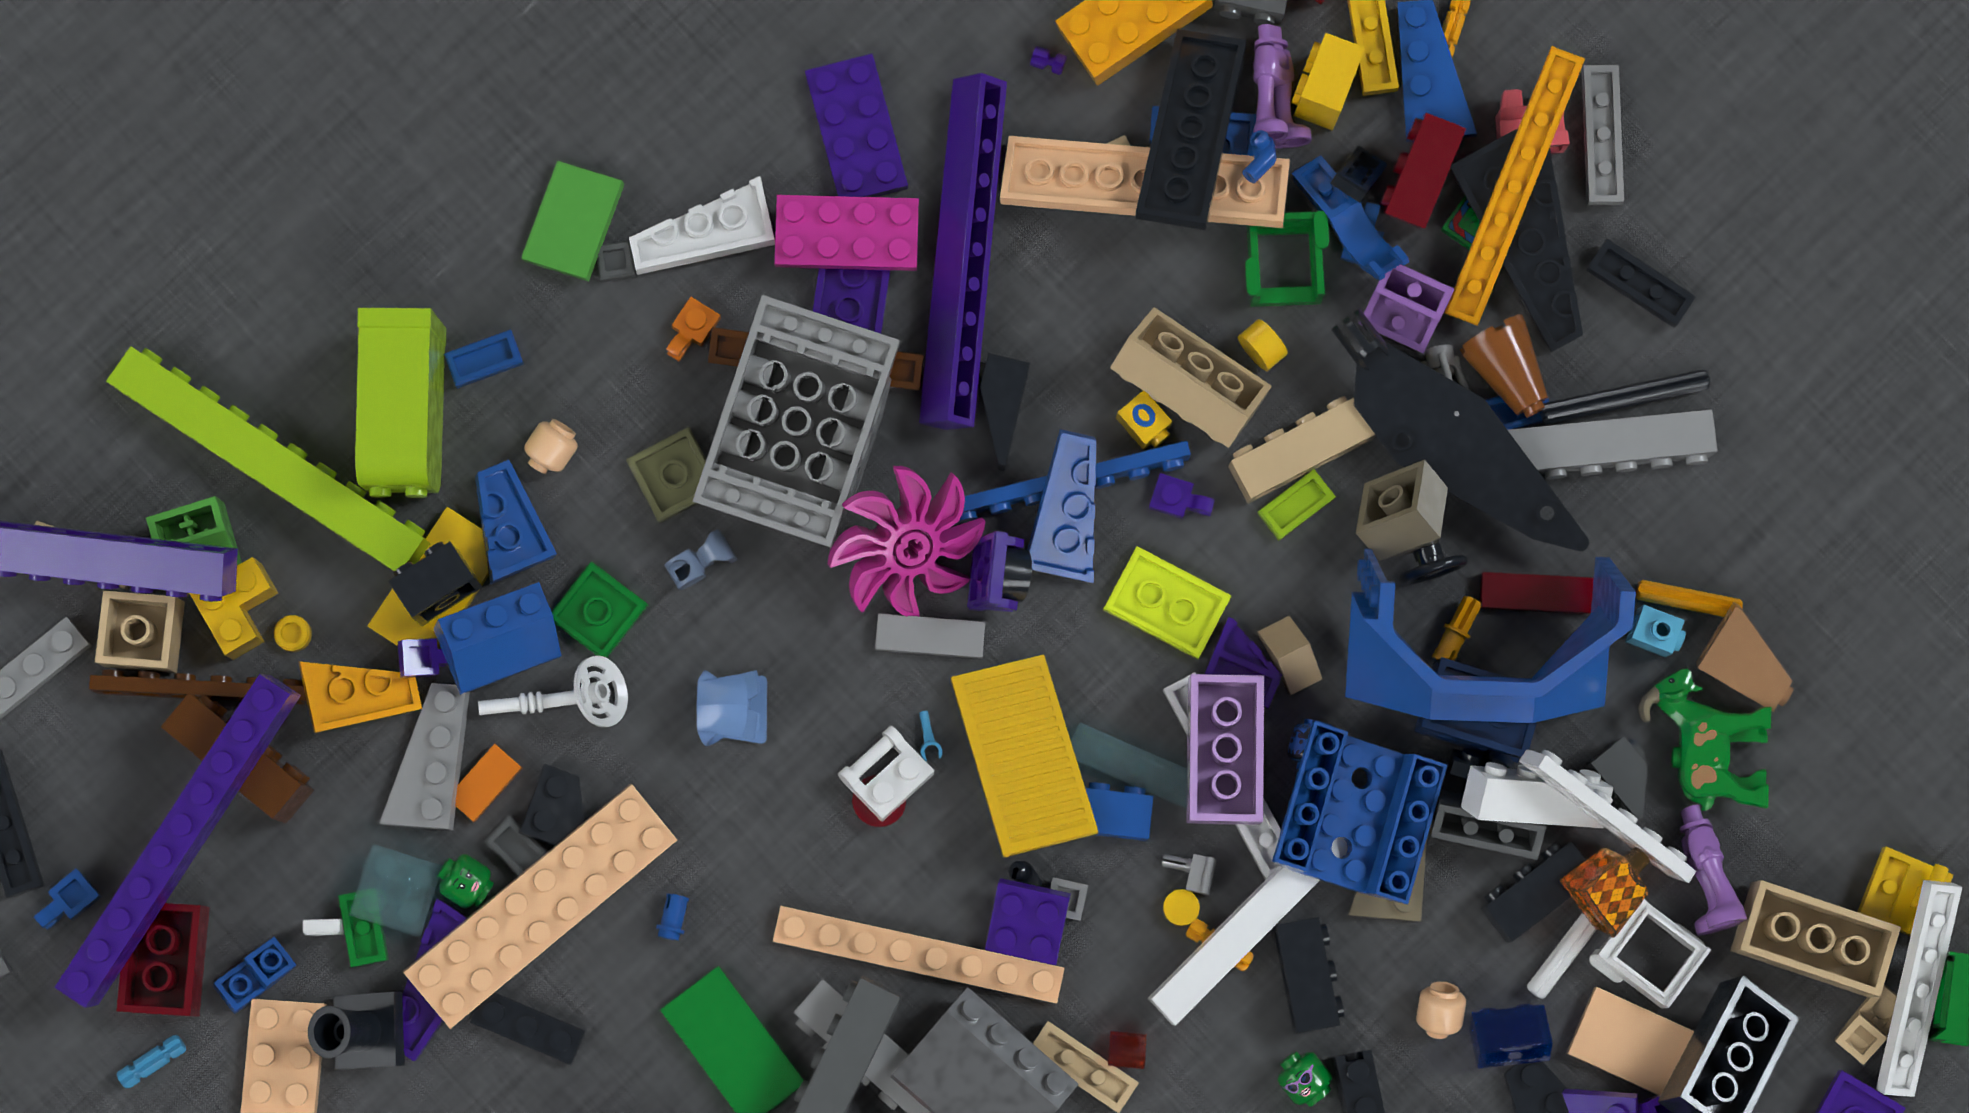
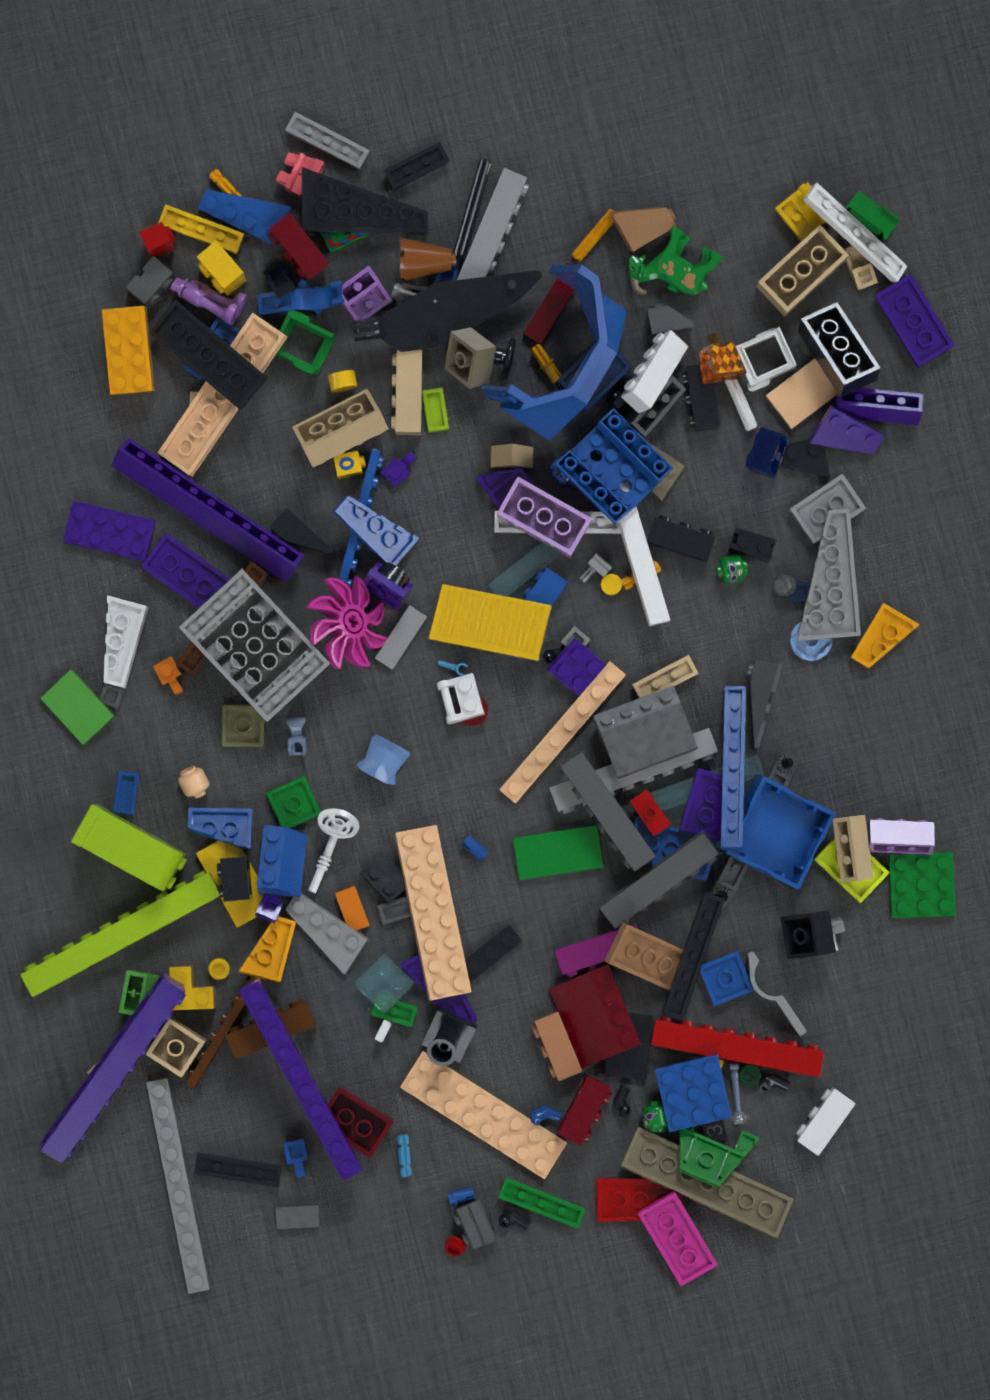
camera: 60 degrees left, 5 degrees up
(254, 975) = (388, 1080): blue slope -> none
(465, 881) = (398, 945): green head -> none
(846, 232) = (164, 566): dark pink plate -> none
(1042, 58) = (124, 412): dark purple piece -> none
(1127, 1049) = (668, 651): clear red tile -> none
(1167, 602) = (450, 505): neon yellow tile -> none
(1264, 156) = (243, 324): blue arm -> none
(1441, 1010) = (735, 480): light nougat head -> none
(1514, 185) = (331, 203): light orange tile -> none
(1599, 807) = (676, 343): white plate -> none
(1656, 631) = (602, 261): medium azure brick -> none
(1706, 858) = (732, 303): medium lavender piece -> none

